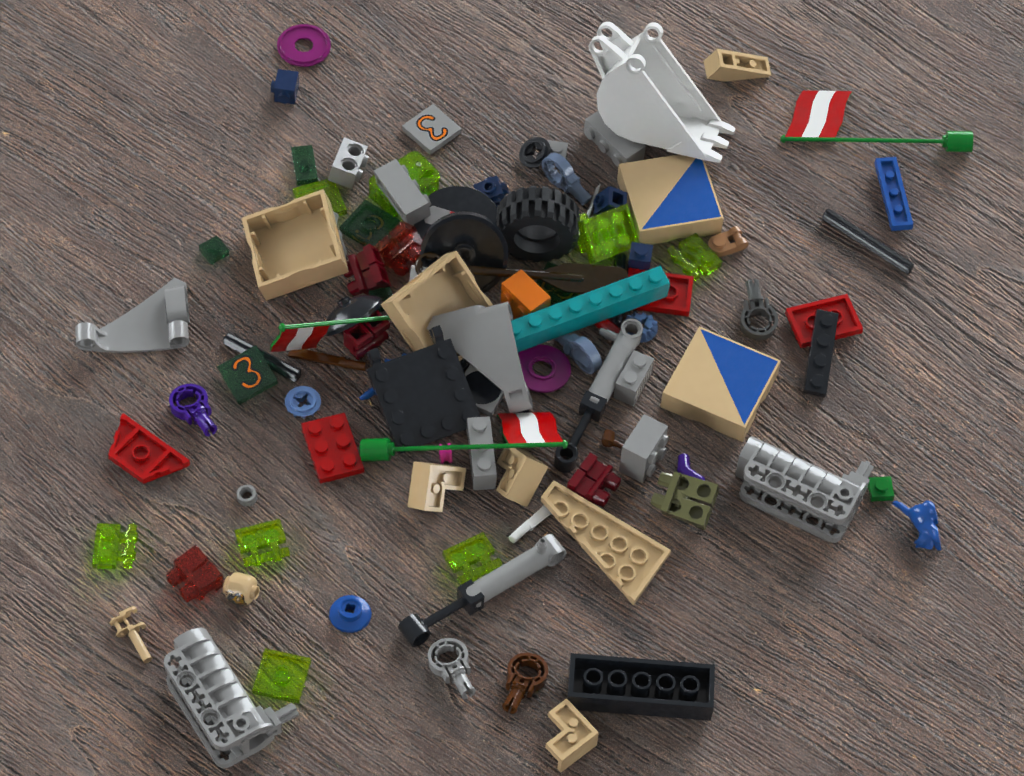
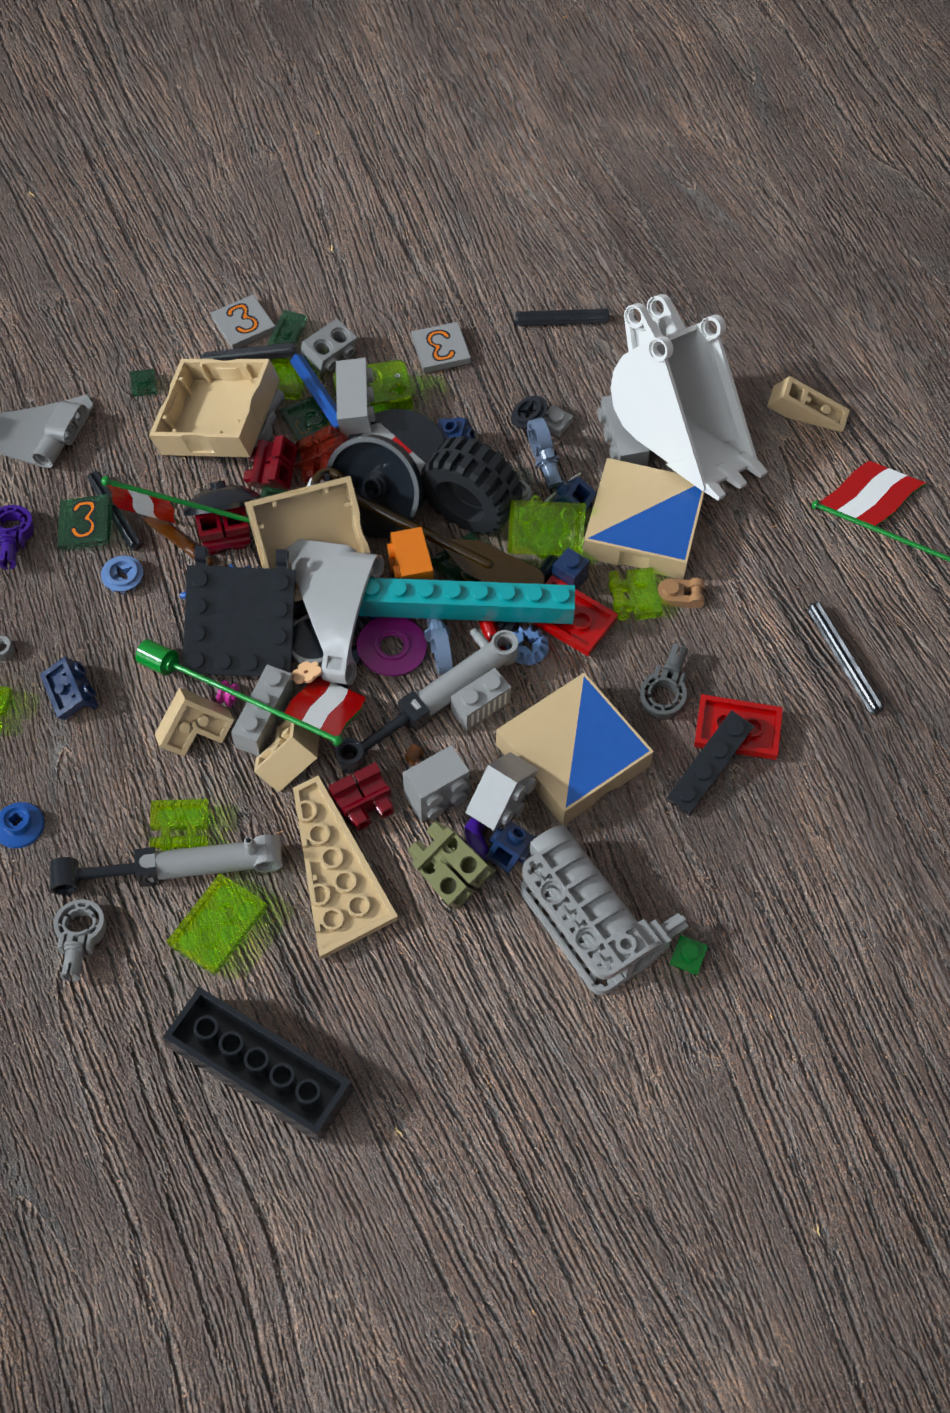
camera: 30 degrees right, 5 degrees up
(261, 170) = (243, 322): none -> light grey tile
(285, 86) = (320, 248): dark blue brick -> none
(289, 192) = (272, 351): none -> black axle
(291, 55) = (355, 227): magenta piece -> none
(320, 501) = (68, 687): none -> dark blue bracket
(332, 448) = (117, 634): red plate -> none
(363, 200) = (315, 388): none -> blue axle
(496, 412) = (306, 672): none -> light nougat plant
(510, 68) = (560, 317): none -> black axle
(521, 684) = (135, 999): reddish brown pin -> none
(530, 524) = (267, 813): white piece -> none
(546, 613) = (216, 924): none -> clear neon green plate
(575, 738) = (149, 1088): tan panel -> none
(695, 431) = (502, 791): none -> brick
(719, 468) = (509, 846): none -> dark blue brick
(893, 194) = (906, 616): blue plate -> none
(924, 520) = (716, 1018): blue animal -> none

